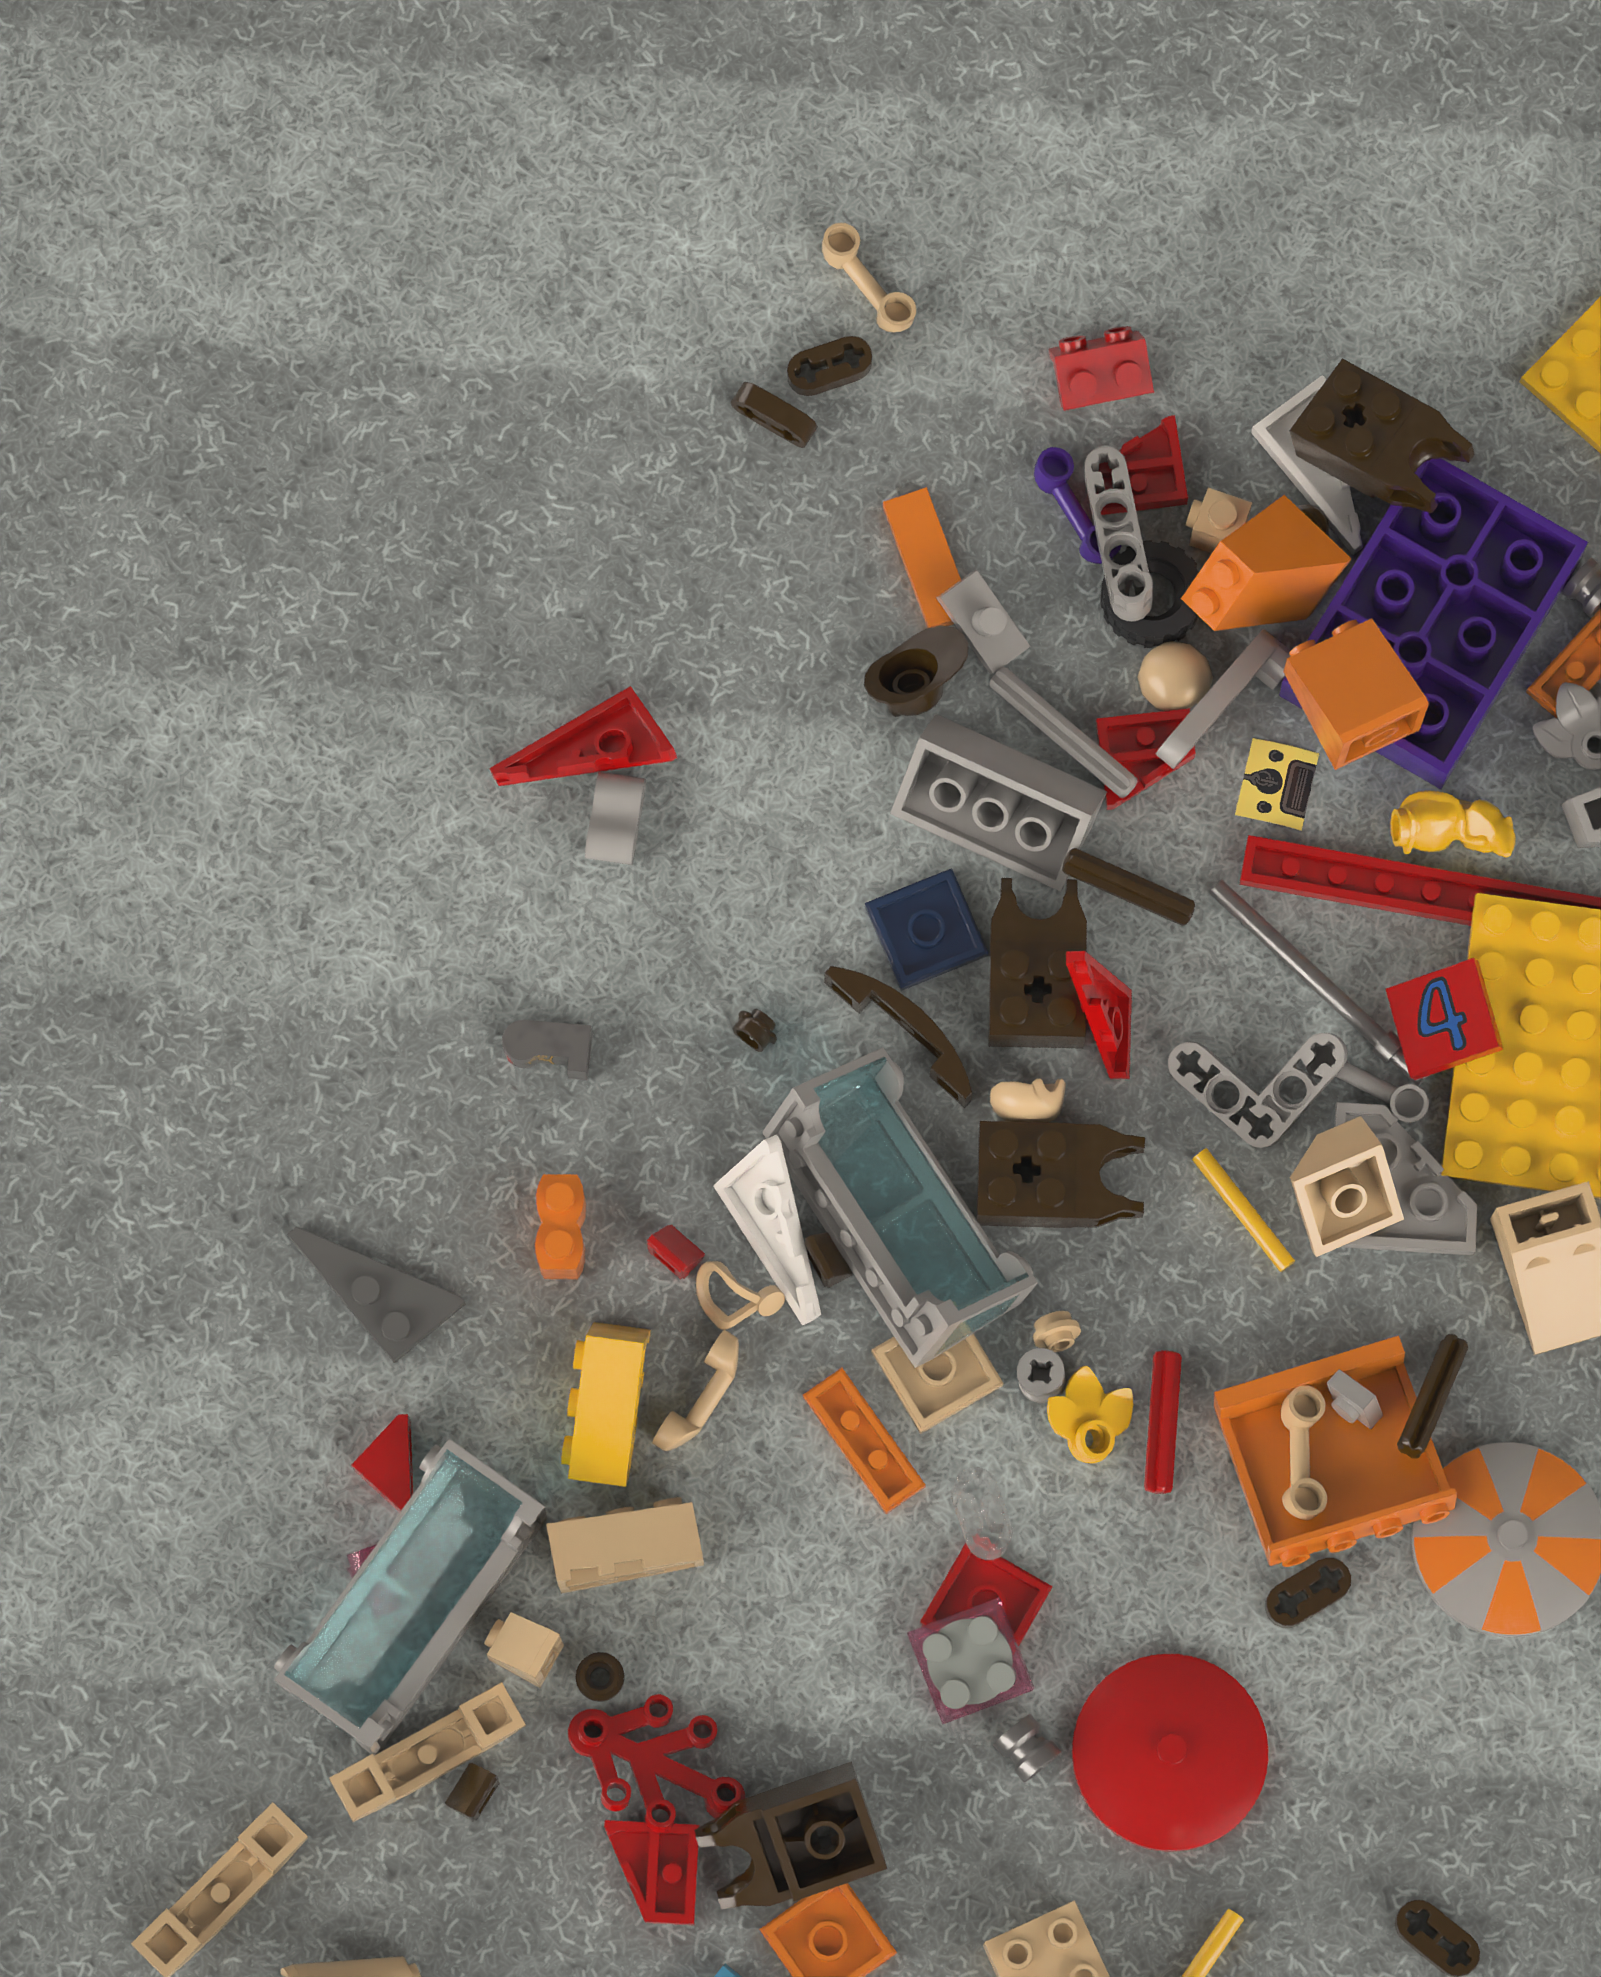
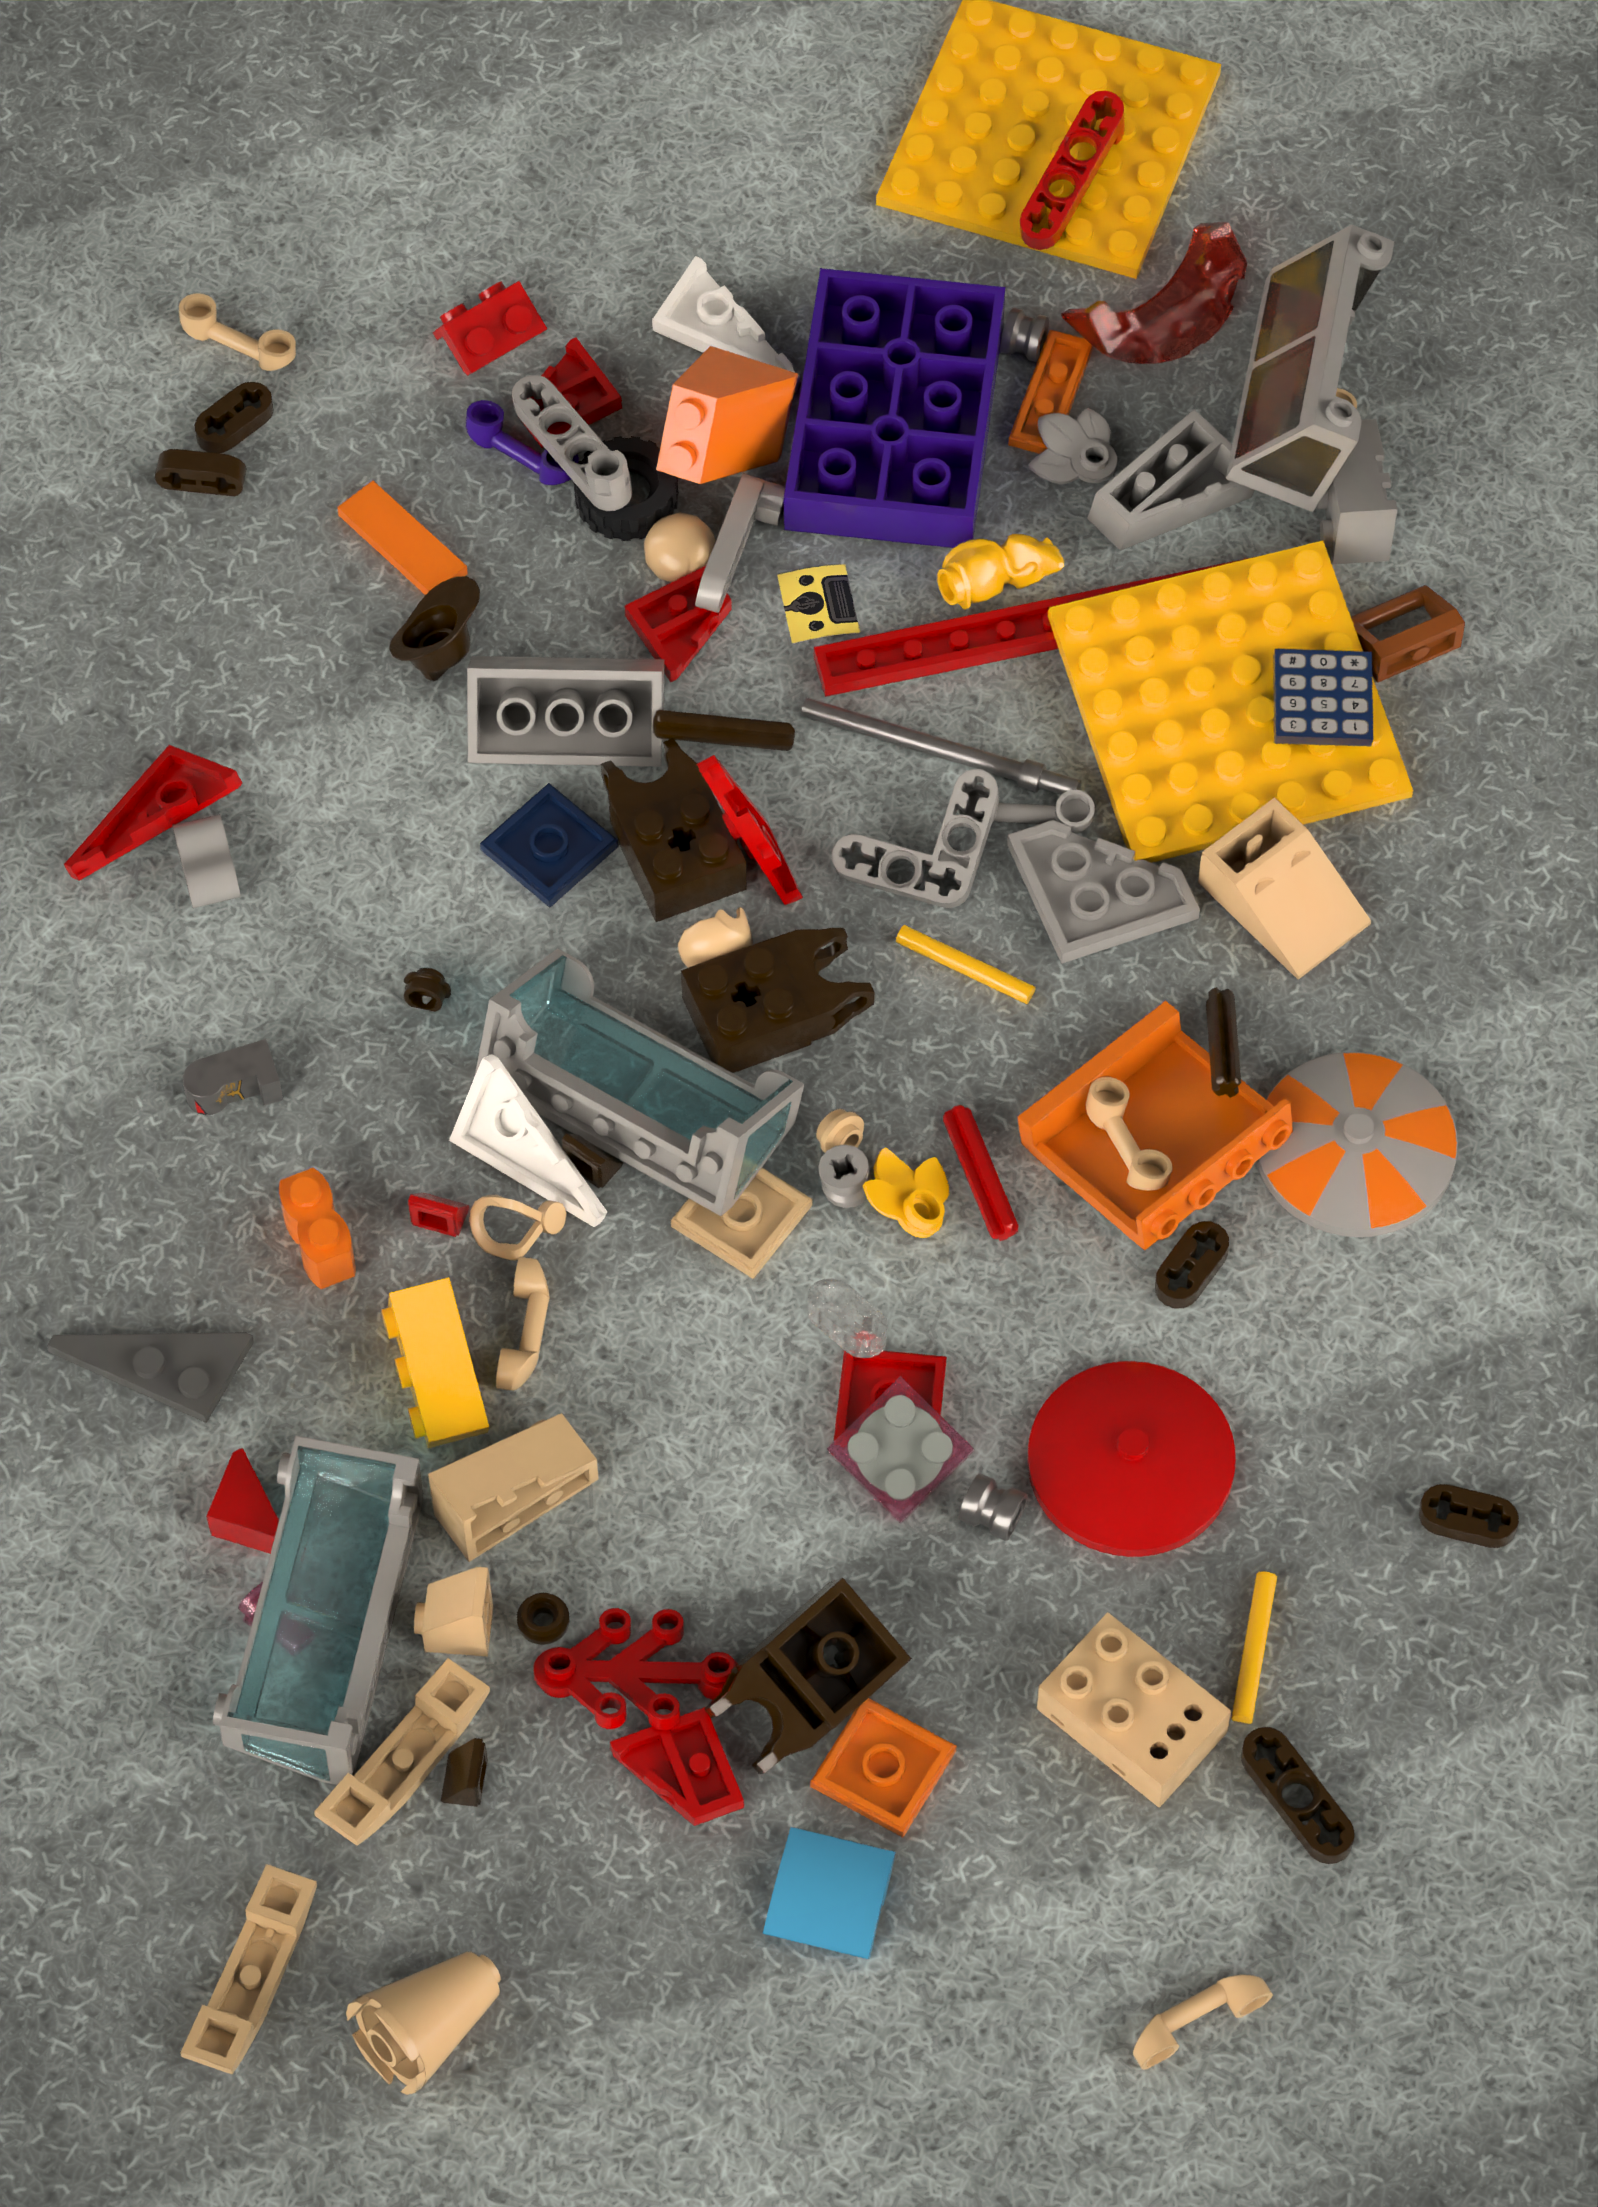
camera: 25 degrees left, 15 degrees down
(861, 989) = (510, 913): dark brown slope -> none
(864, 1440) = (702, 1304): orange tile -> none
(983, 622) = (482, 560): light grey tile -> none
(1063, 732) = (599, 627): light grey axle -> none
(1216, 518) = (652, 402): tan brick -> none
(1344, 1187) = (1054, 892): tan slope -> none
(1353, 1400) = (1152, 1071): light grey plate -> none
(1355, 691) = (858, 472): orange slope -> none
(1375, 437) = (772, 272): dark brown brick -> none
(1444, 1019) = (1072, 721): red tile -> none

